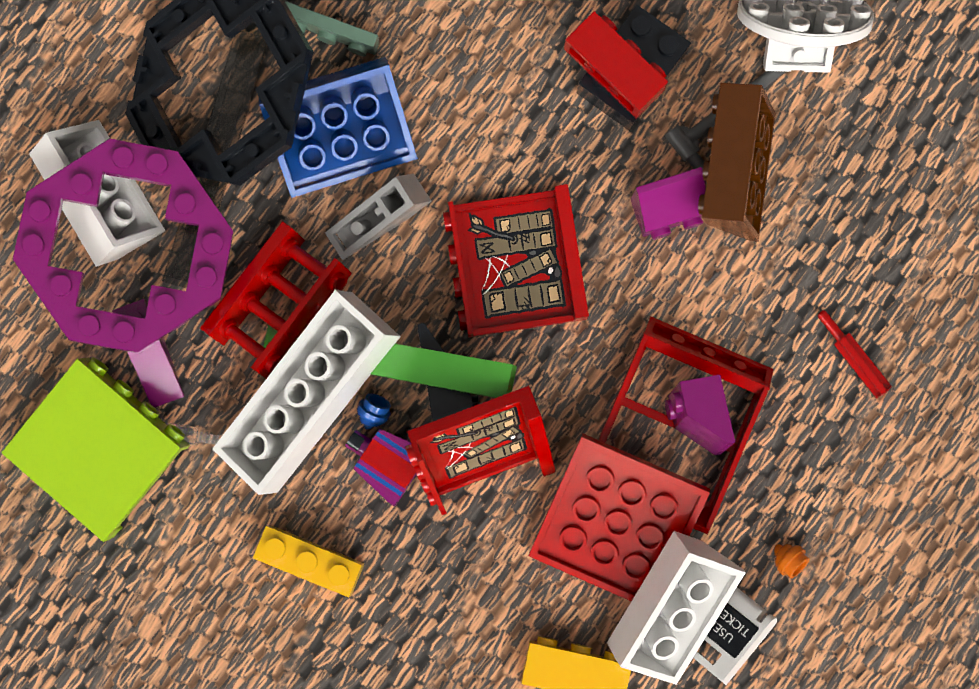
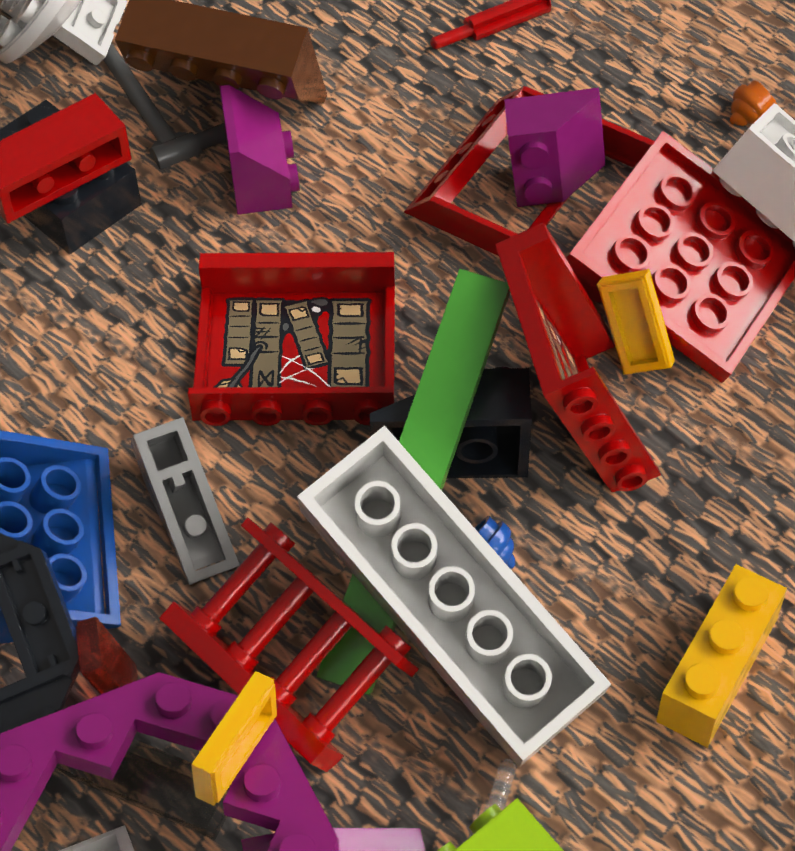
camera: 80 degrees left, 30 degrees down
(177, 285) = (234, 739): none -> yellow tile
(242, 200) = (102, 657): none -> clear red tile
(383, 463) = (574, 530): torso -> none
(547, 488) = (636, 322): none -> yellow tile

